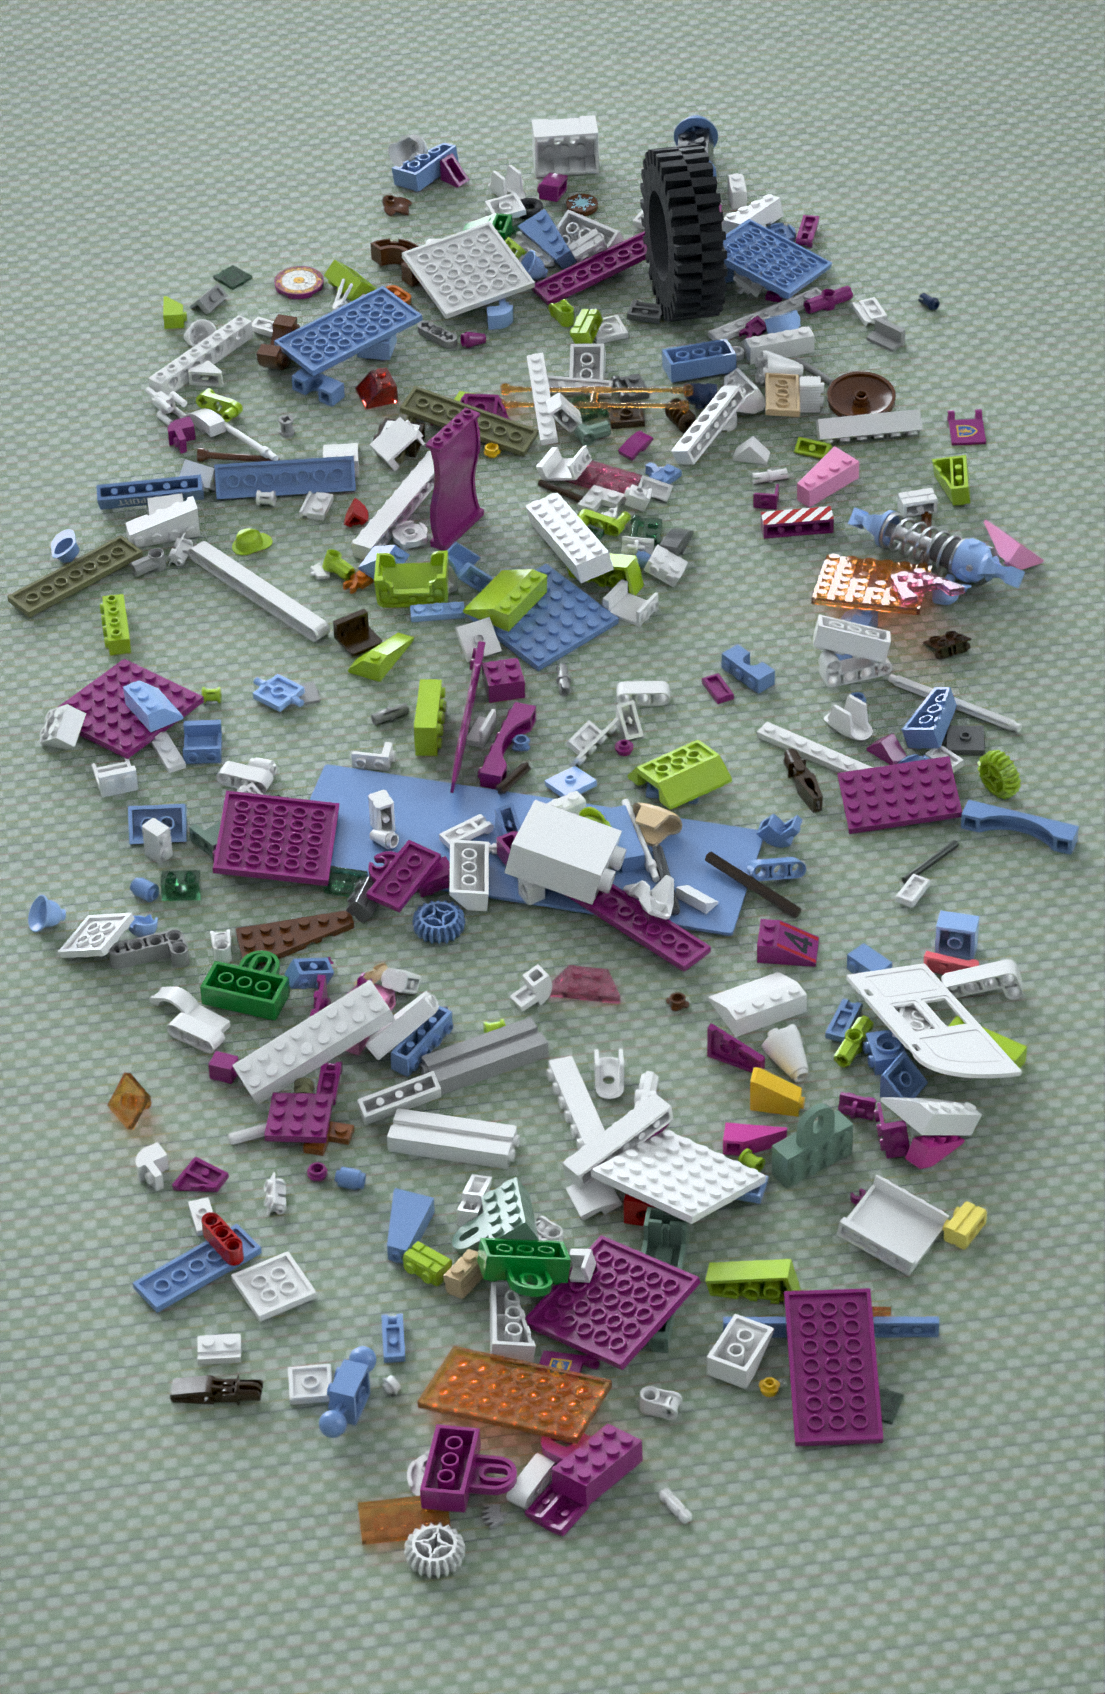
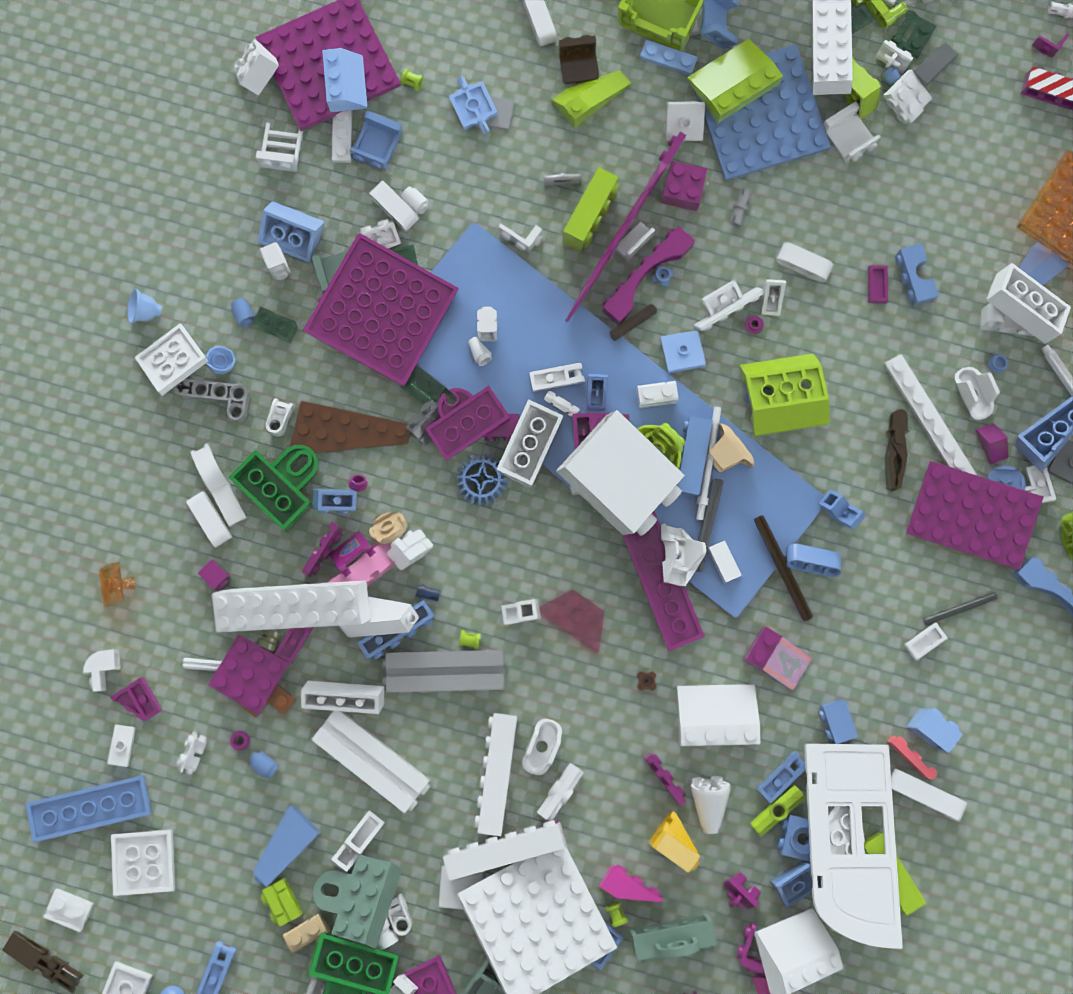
camera: 20 degrees right, 40 degrees up
(222, 1238) = (112, 807): red beam -> none

